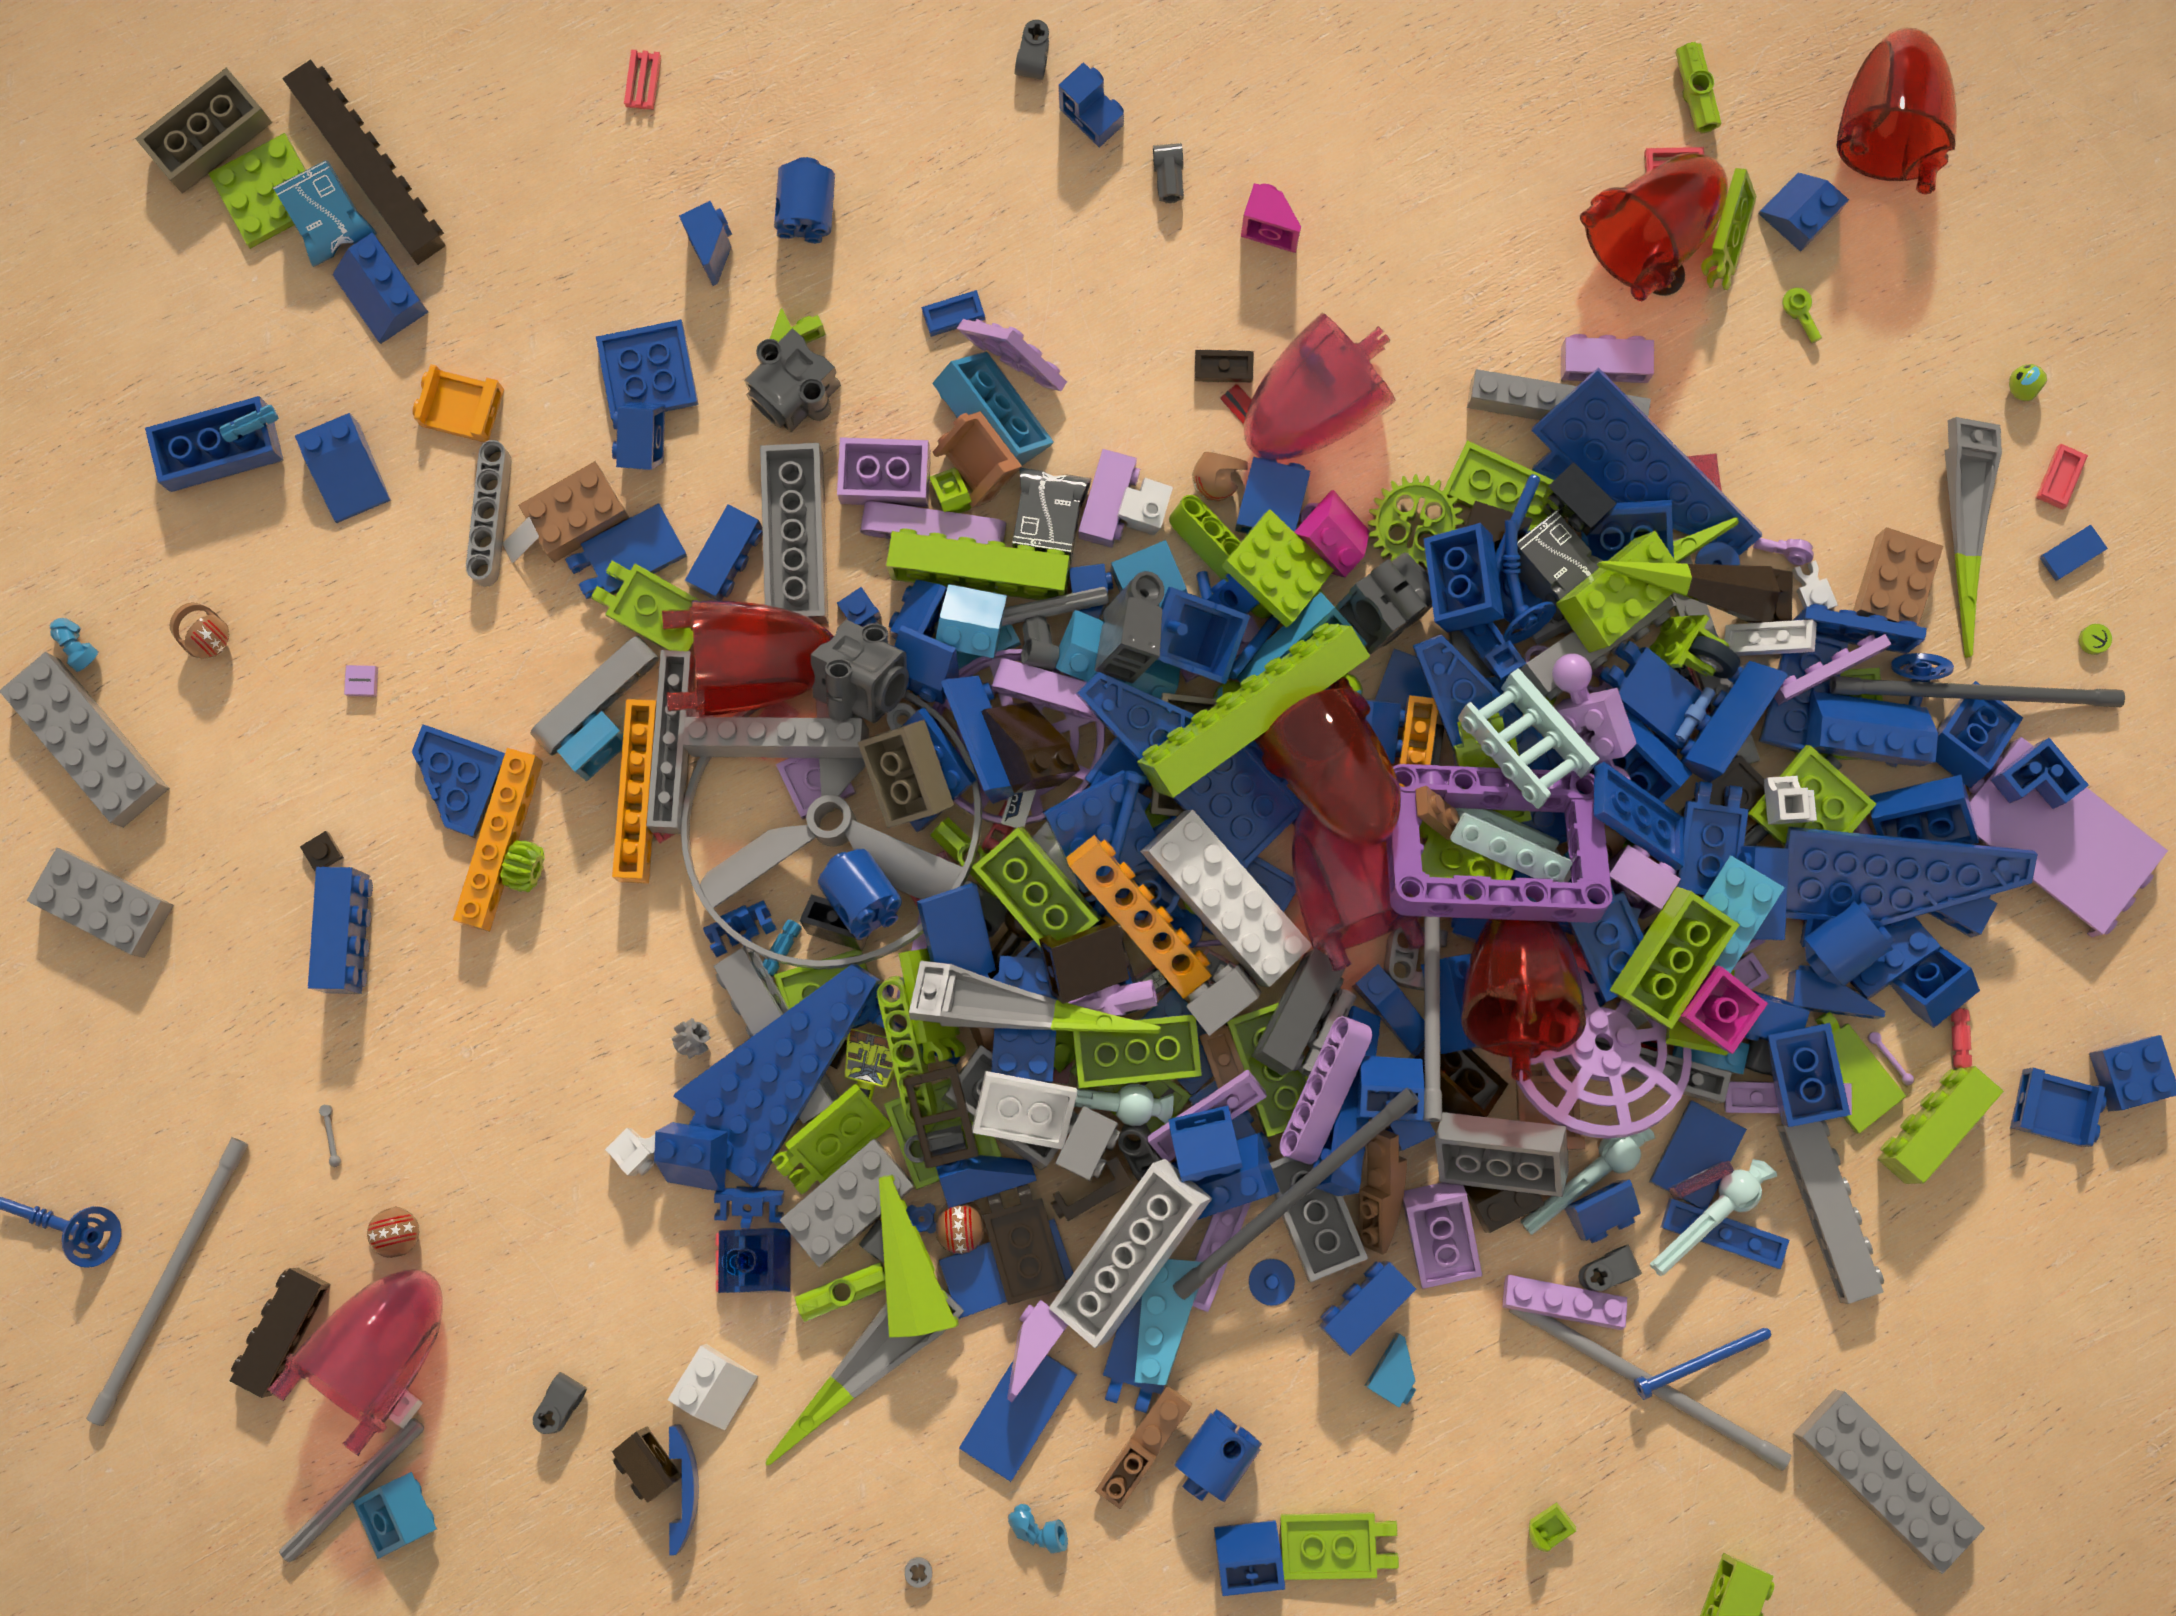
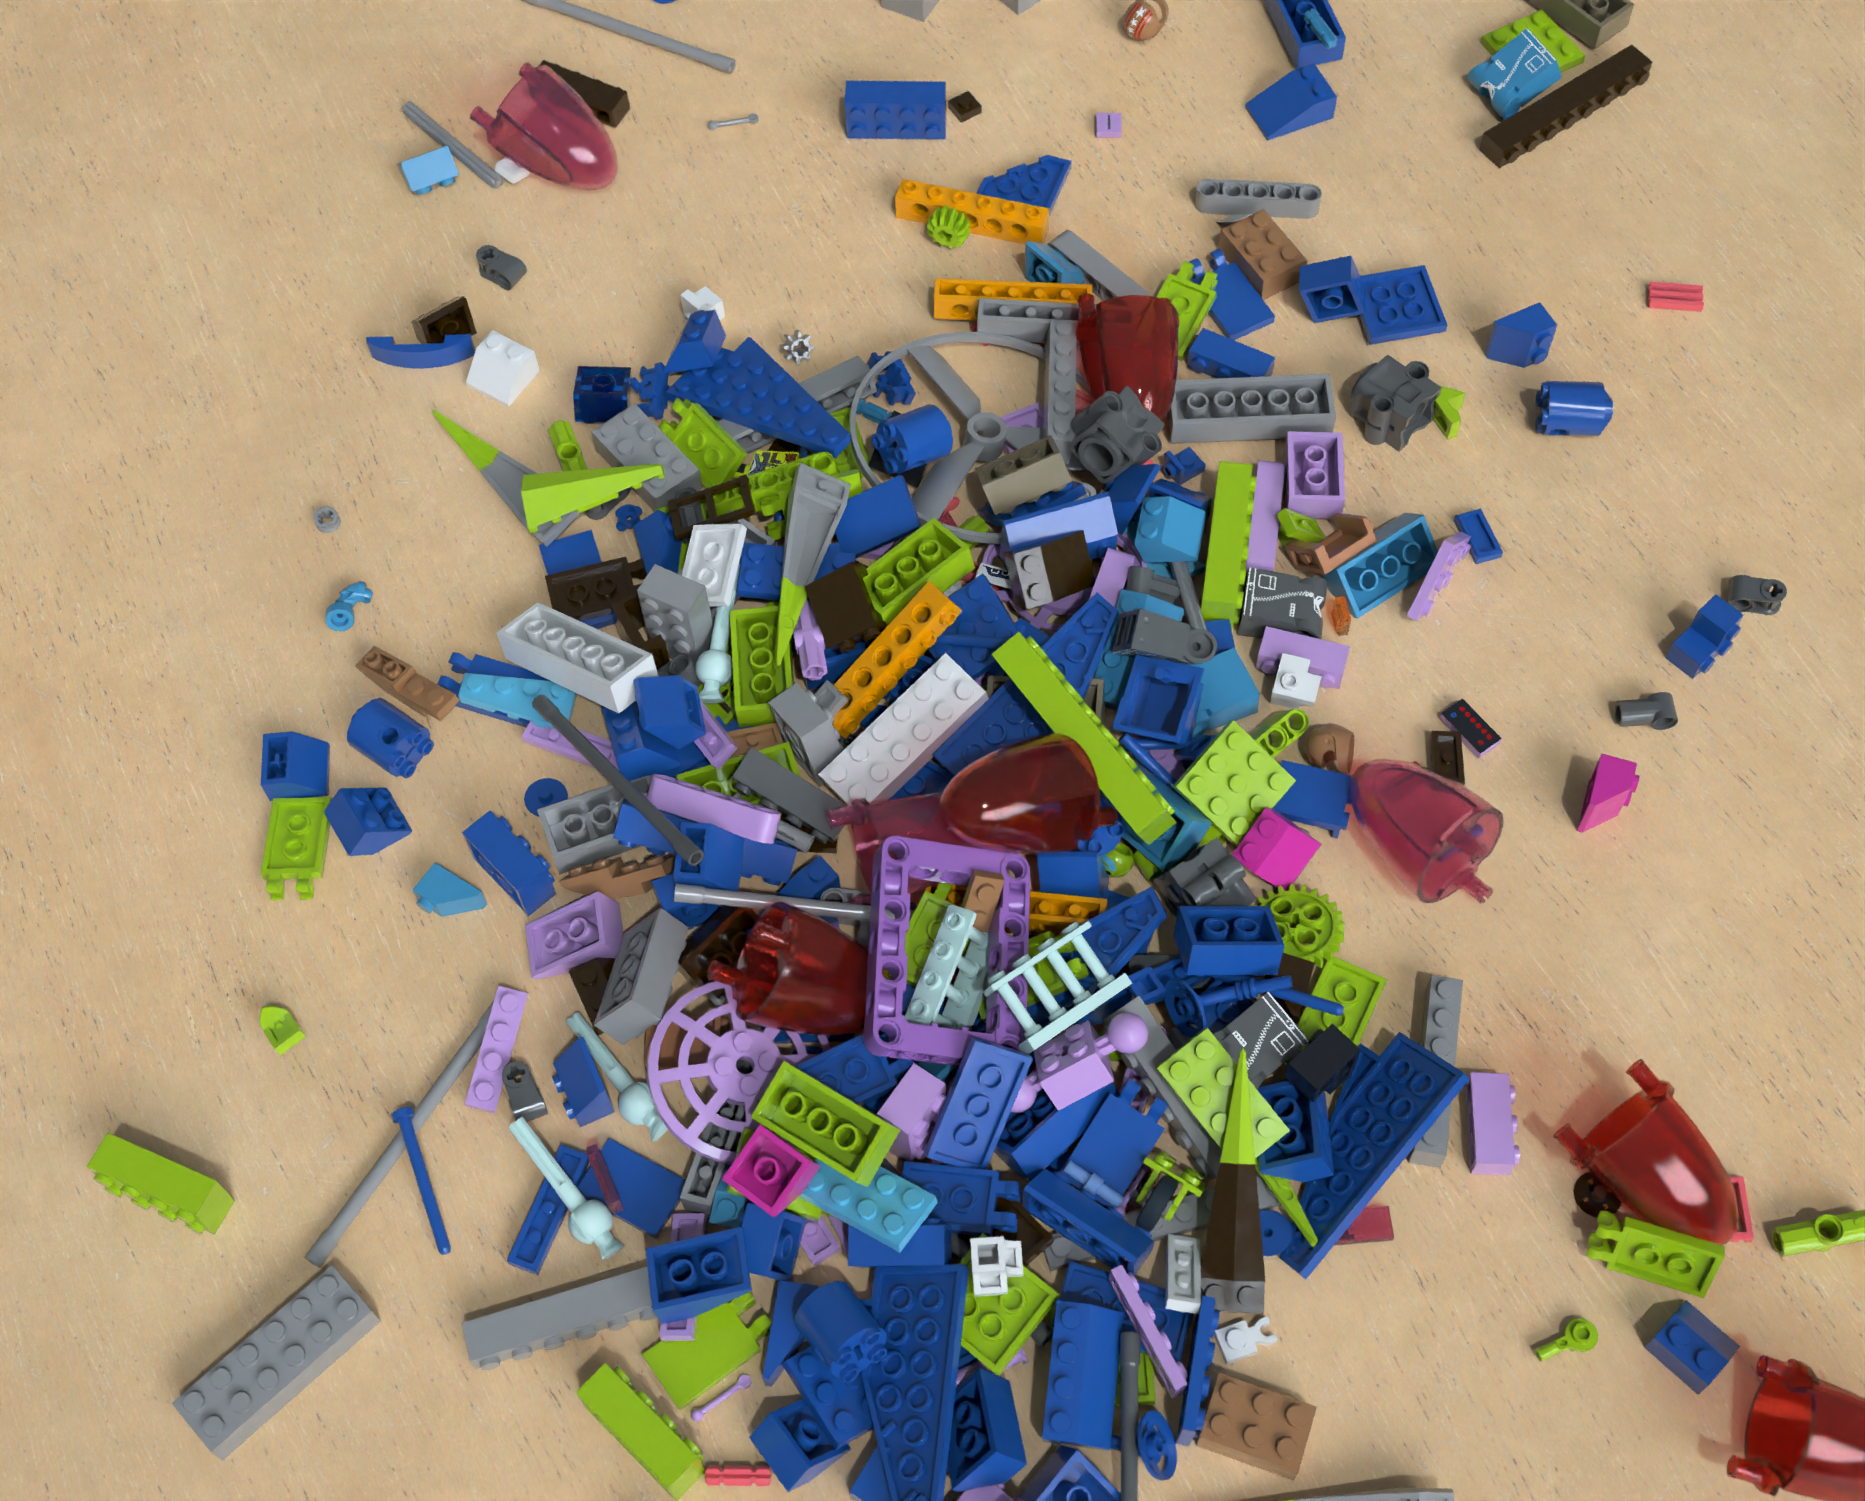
camera: 90 degrees right, 20 degrees down
(378, 289) = (1455, 122): blue slope -> none
(393, 1232) = (650, 157): medium nougat helmet -> none
(458, 404) = (1354, 176): light orange panel -> none
(960, 1228) = (615, 540): medium nougat helmet -> none
(1009, 1430) = (454, 592): blue tile -> none
(1034, 1341) = (504, 592): lavender slope -> none
(1057, 456) = (1341, 616): none -> clear orange tile
(1182, 979) = (830, 697): none -> light grey tile
(1184, 341) = (1474, 730): none -> black tile
(1310, 1470) = (366, 820): none -> blue slope
(1795, 550) = (1287, 1318): lavender plate -> none

